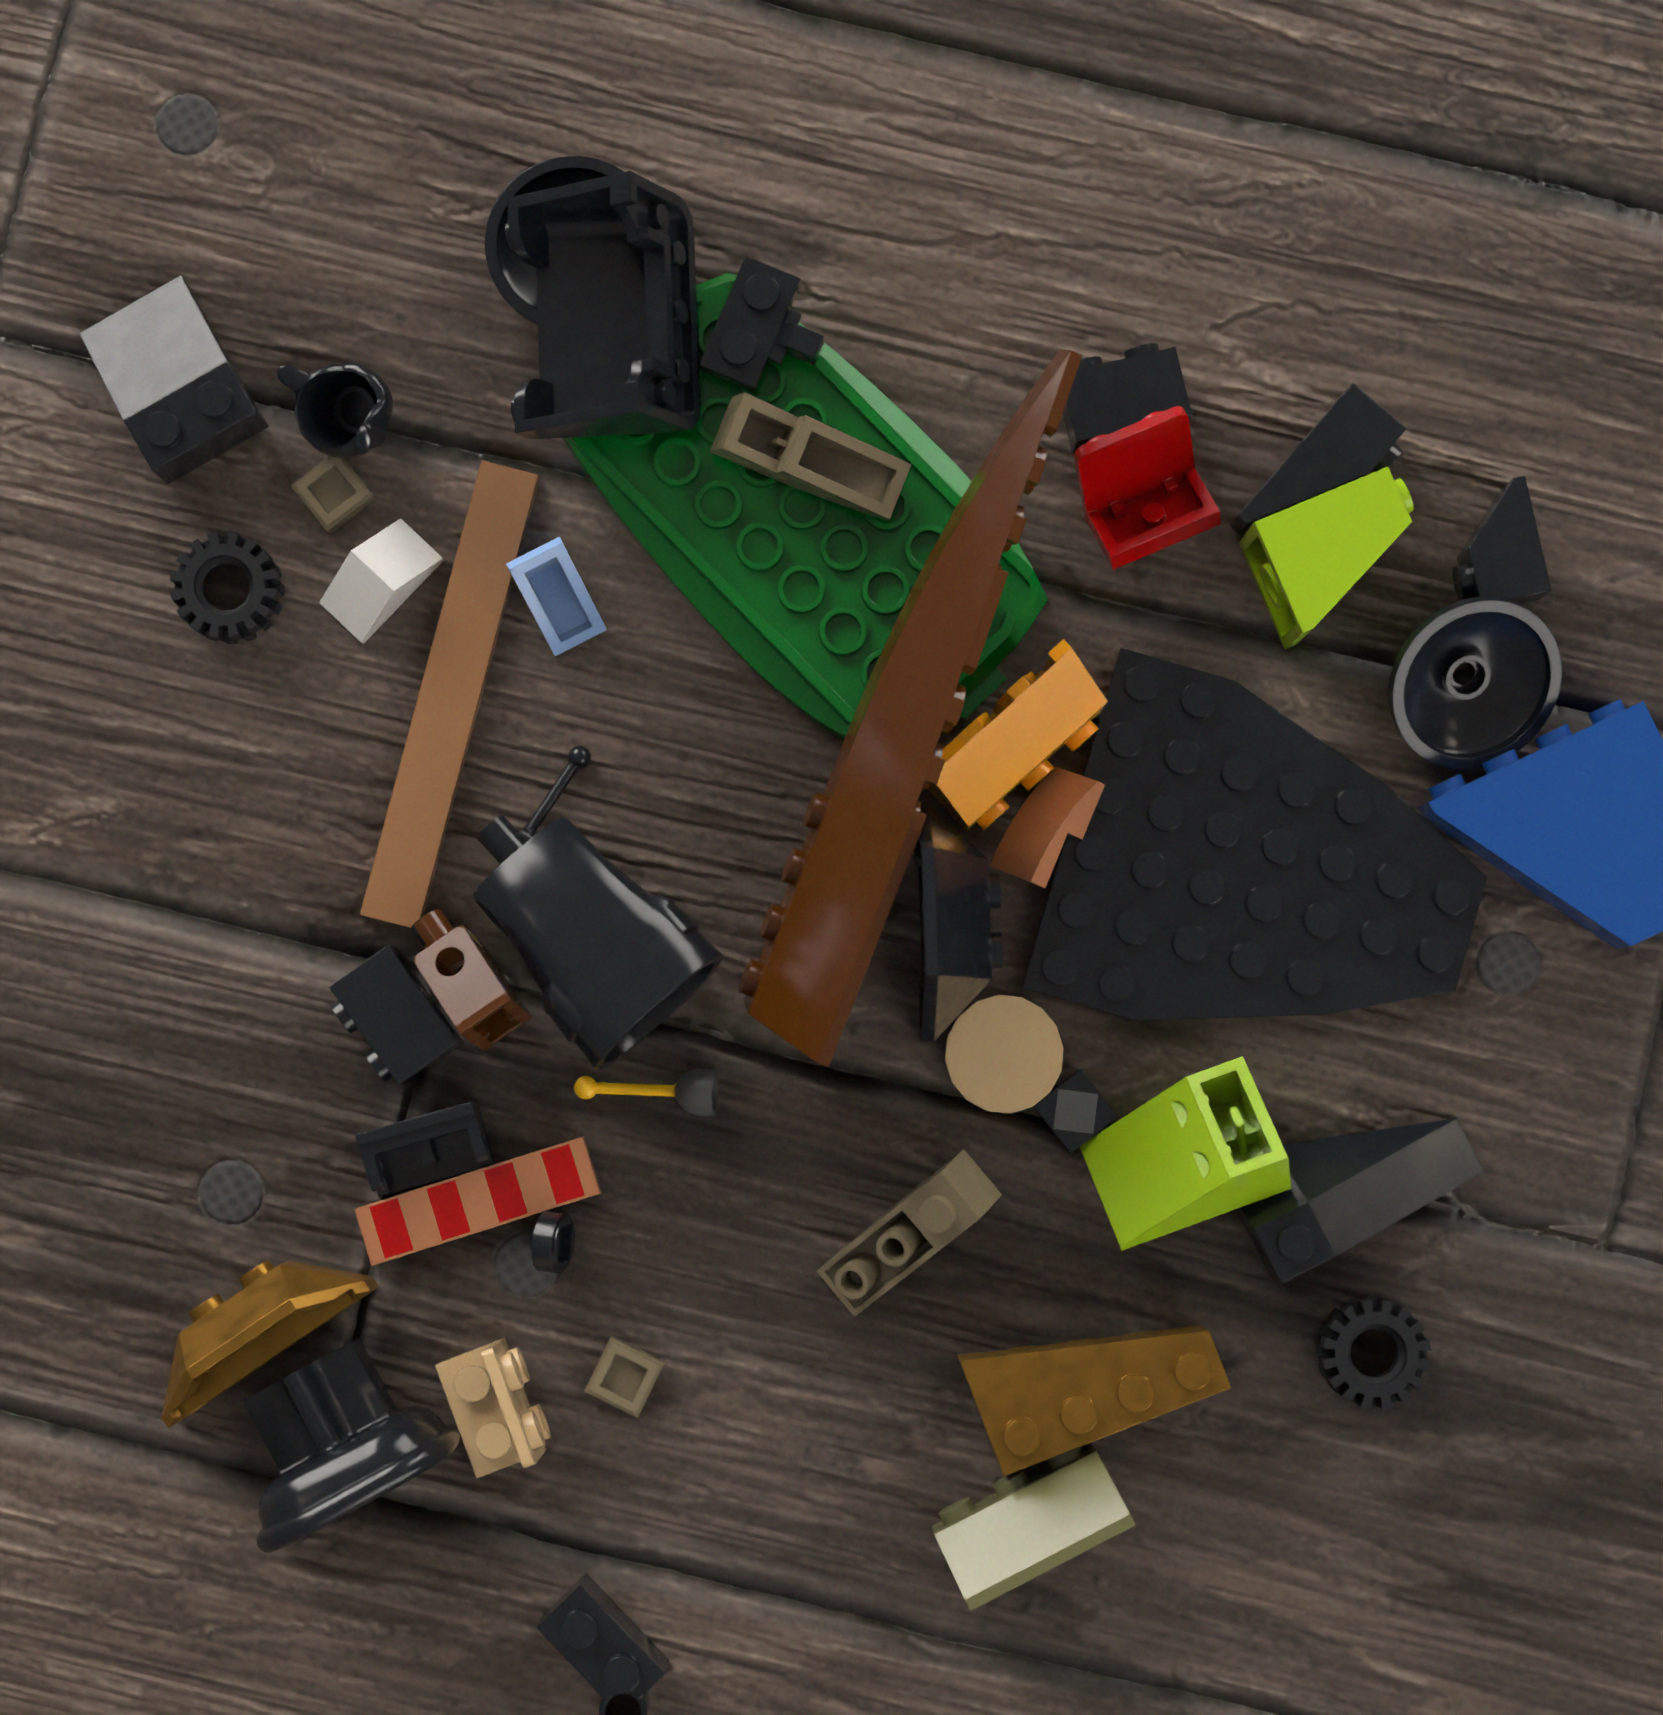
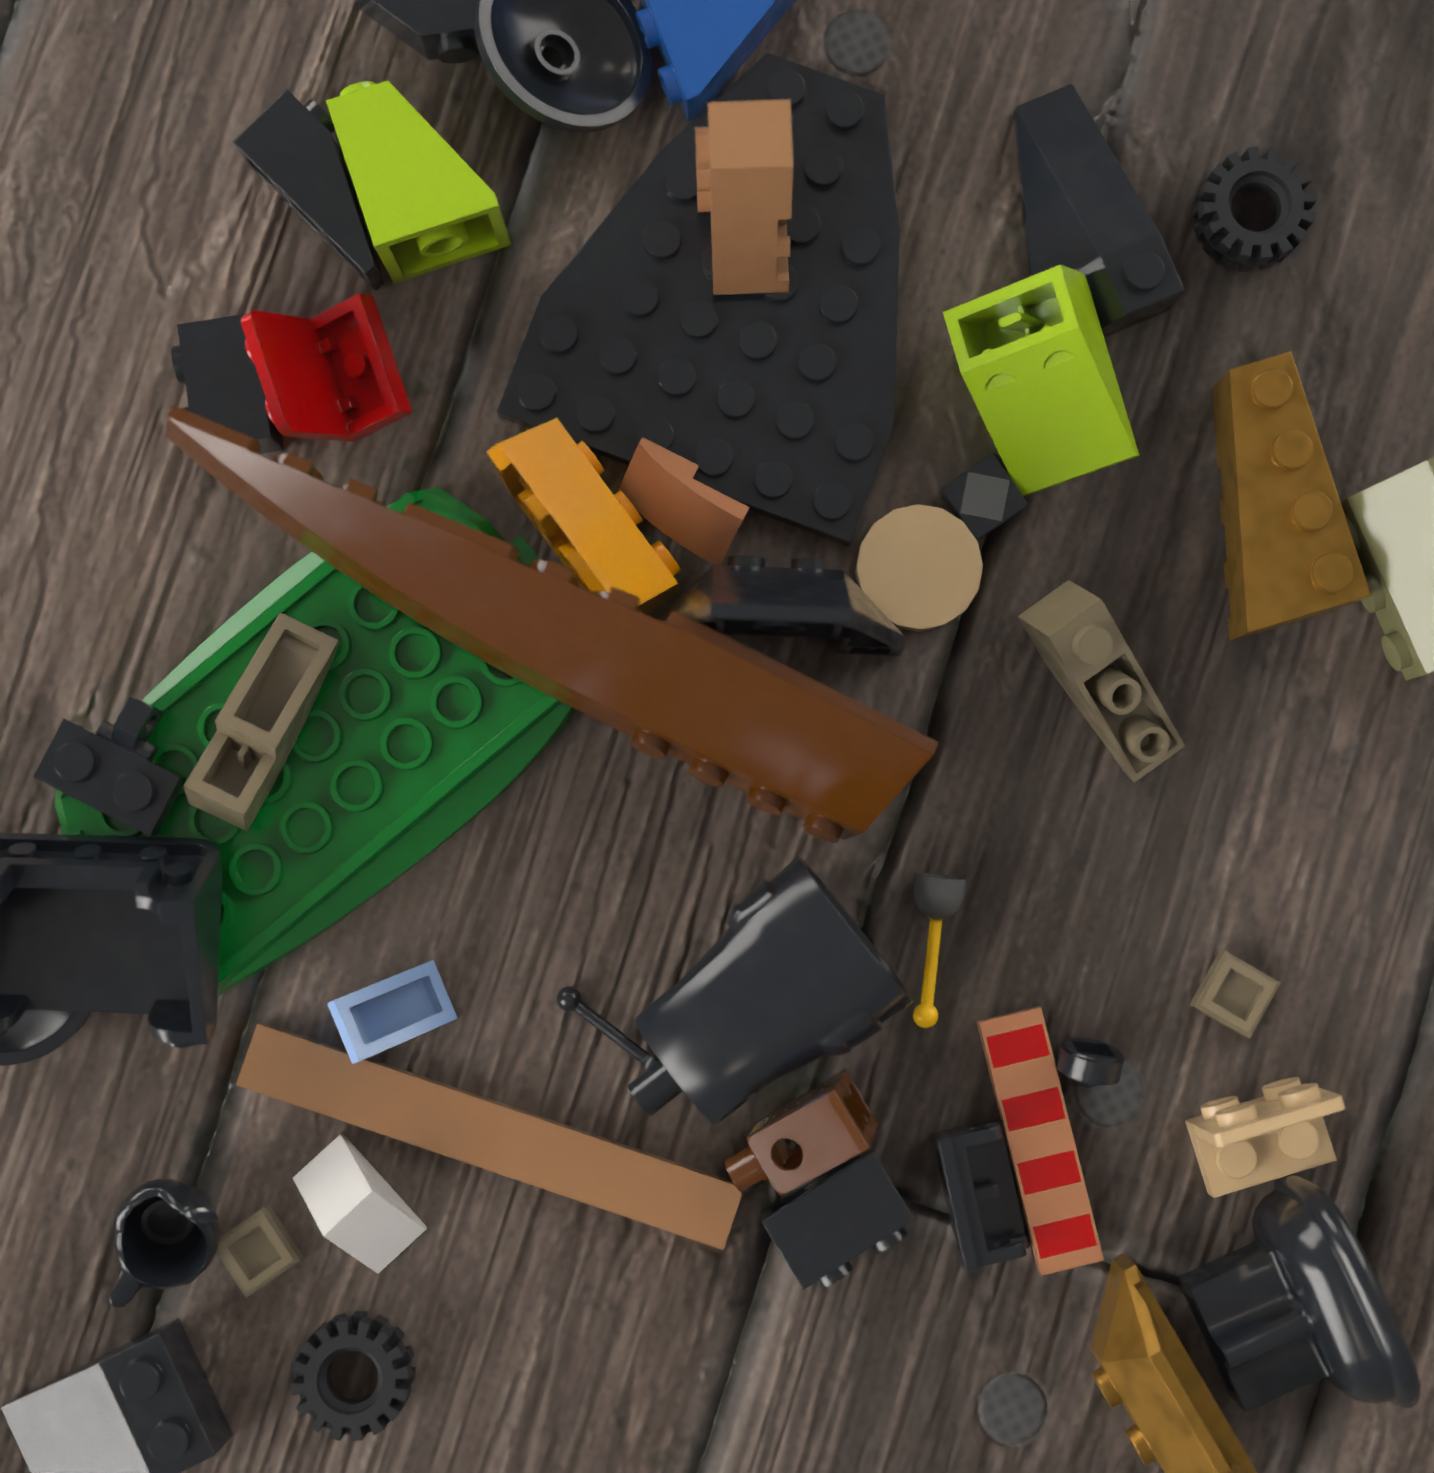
camera: 85 degrees left, 0 degrees up
(1334, 862) = (747, 189): none -> medium nougat wedge

